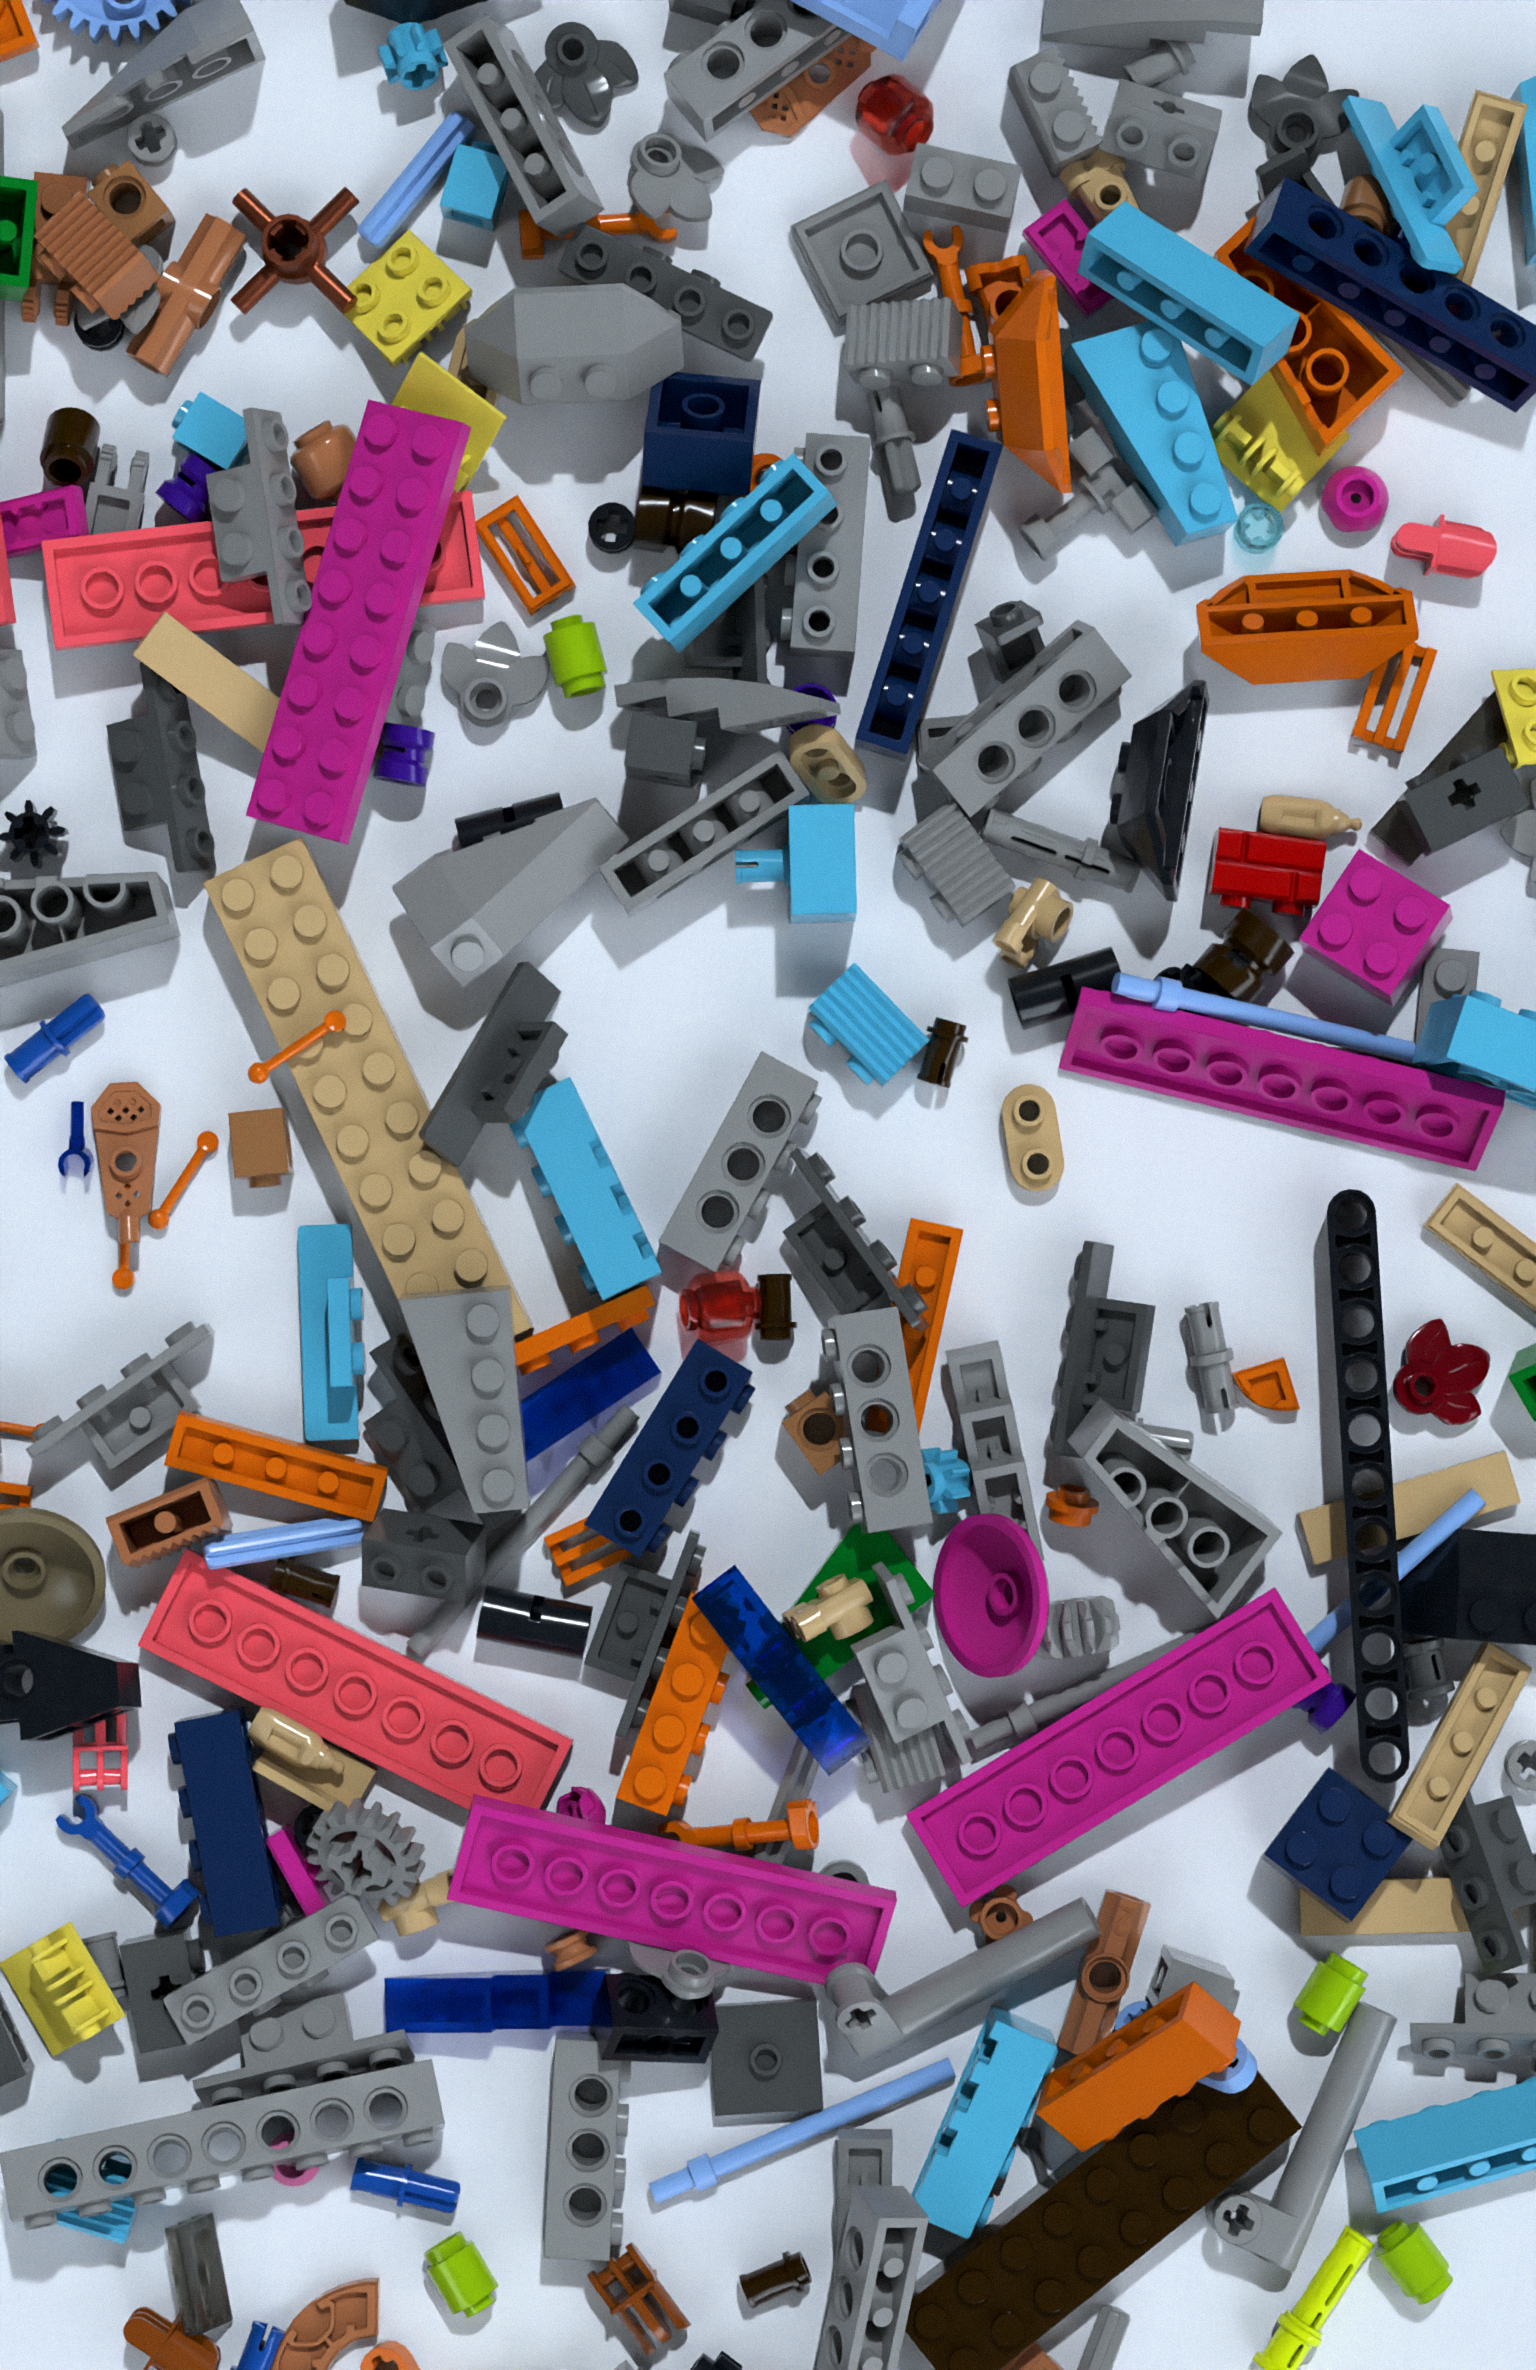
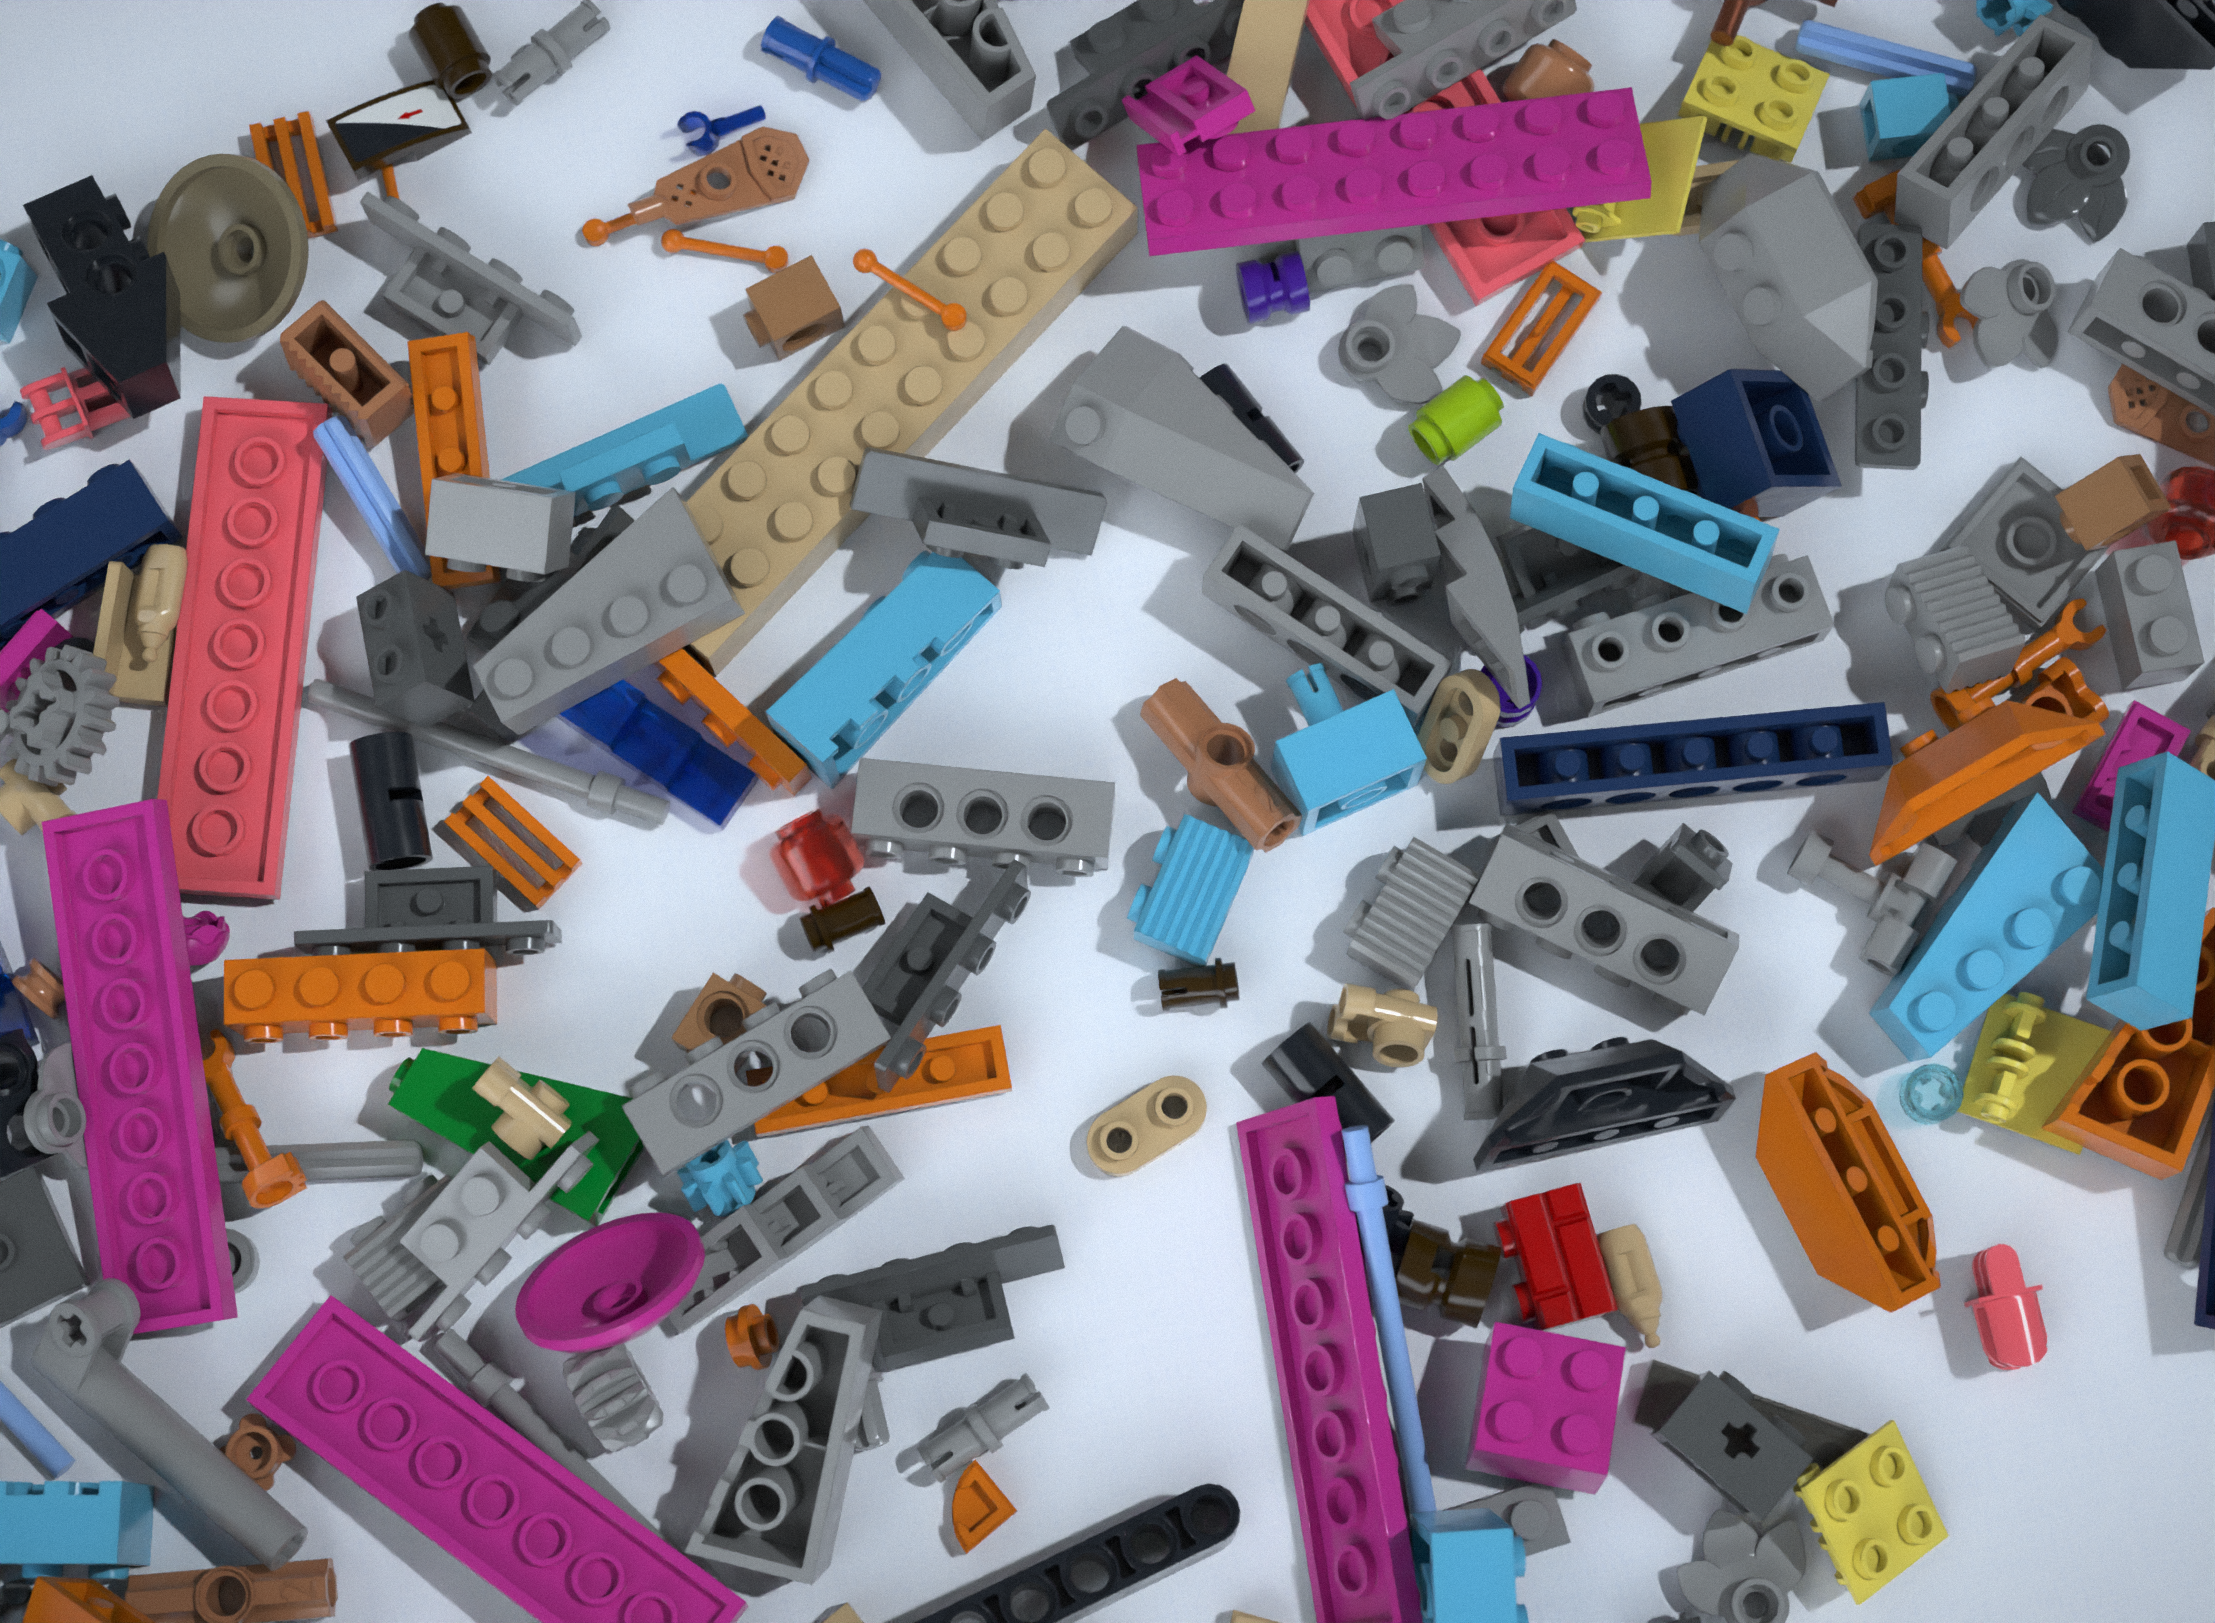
camera: 70 degrees right, 10 degrees down
(232, 759) = (1189, 104): none -> dark pink plate
(304, 1582) = (340, 543): dark brown pin -> none
(356, 1448) = (499, 525): none -> light grey brick
(668, 1449) = (636, 867): dark blue brick -> none
(750, 971) = (1221, 765): none -> nougat piece
(781, 1670) = (433, 1080): clear blue slope -> none
(866, 177) = (2111, 503): none -> medium nougat brick
(894, 440) = (1843, 659): light grey axle -> none
(1355, 516) = (1992, 1193): dark pink plate -> none
(1379, 737) = (1872, 1318): orange tile -> none

